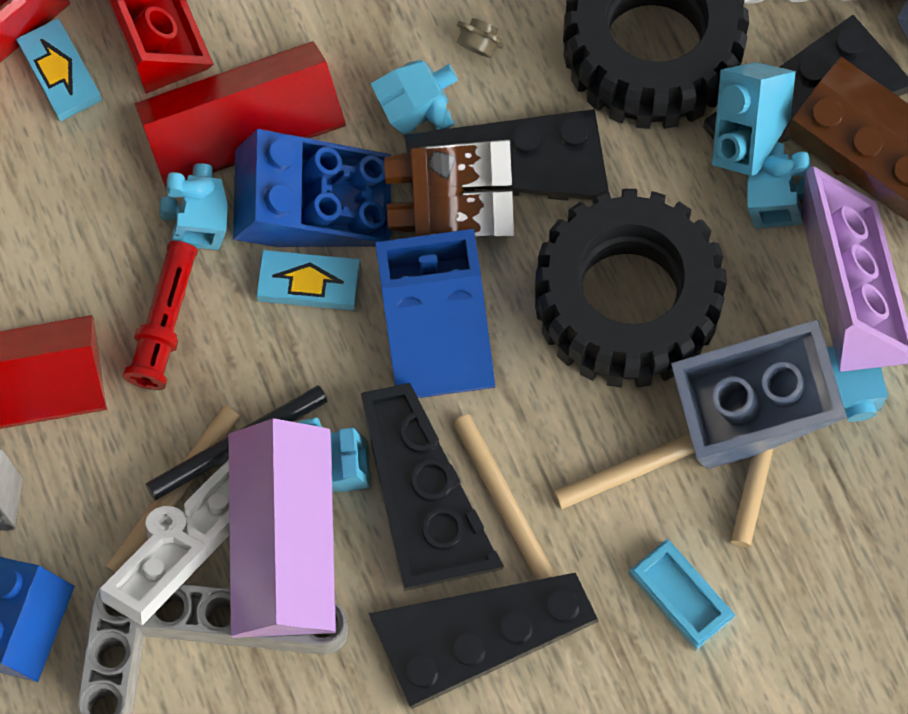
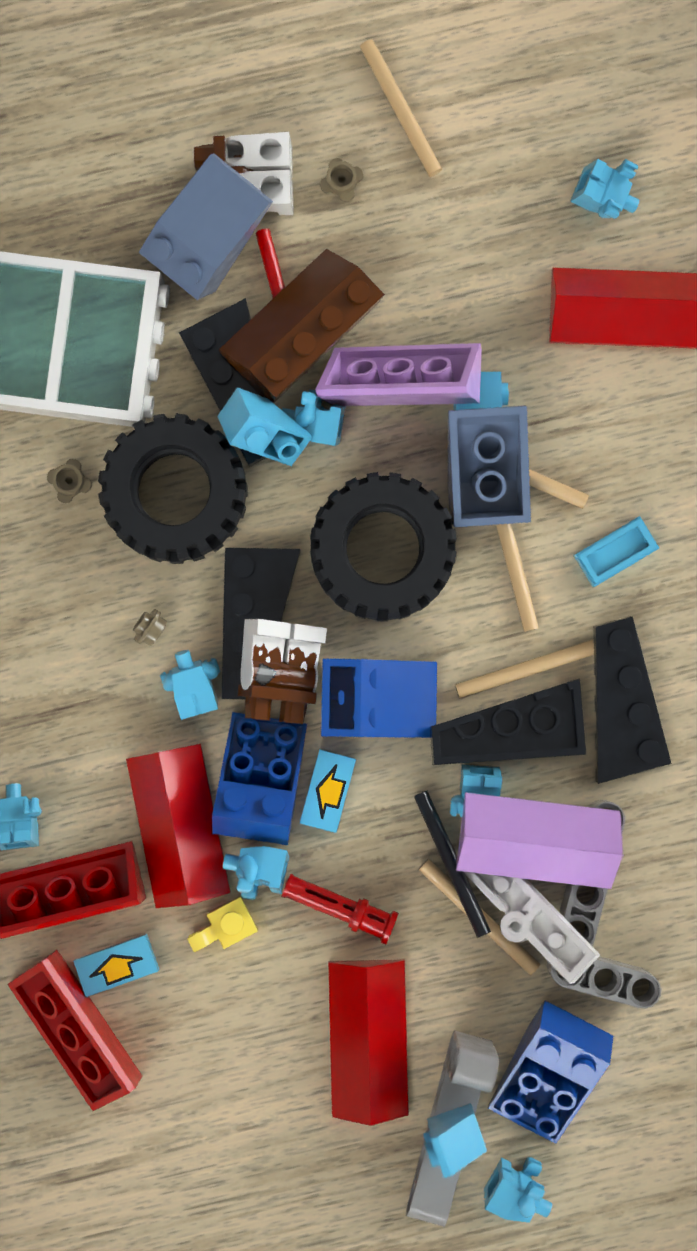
camera: 80 degrees left, 15 degrees up
(124, 188) = (228, 924): none -> light yellow plate

